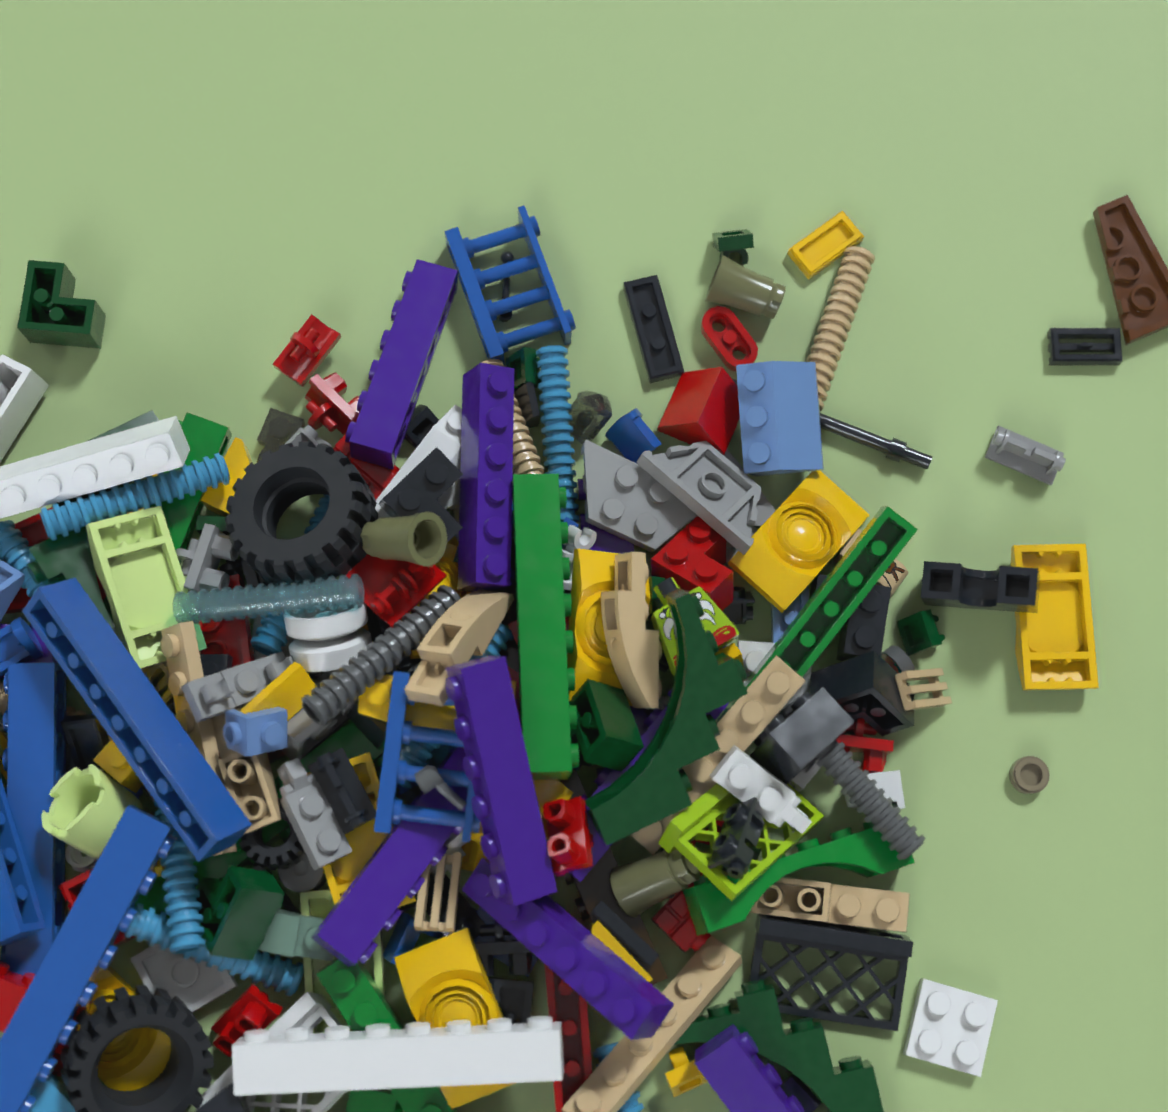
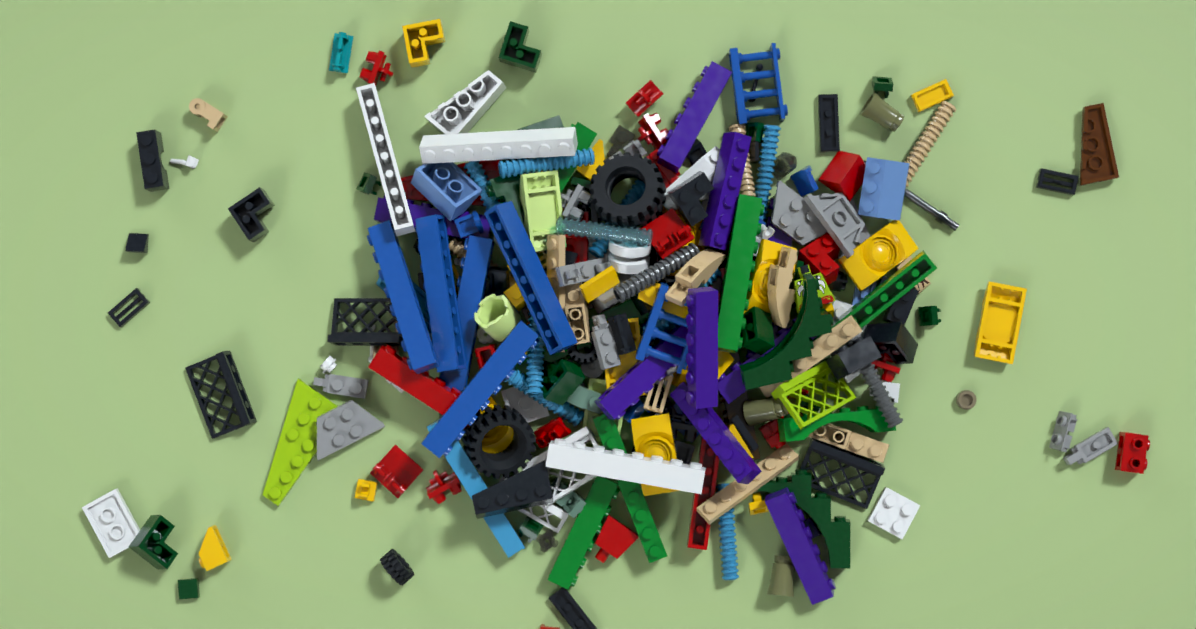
camera: 25 degrees right, 10 degrees up
(256, 731) = (586, 297): medium blue bracket -> none
(406, 538) = (679, 217): olive plant -> none
(430, 778) = (668, 339): dark grey hand -> none
(568, 835) = (728, 380): red hips -> none
(731, 339) = (867, 138): red plate -> none
(737, 838) = (810, 400): black hinge -> none
(749, 779) = (827, 379): white hinge -> none
(897, 659) = (913, 328): dark grey tile -> none
(933, 686) = (929, 345): tan tile -> none
(960, 587) = (964, 300): black arch -> none
(1025, 455) = (1008, 234): light grey hinge -> none

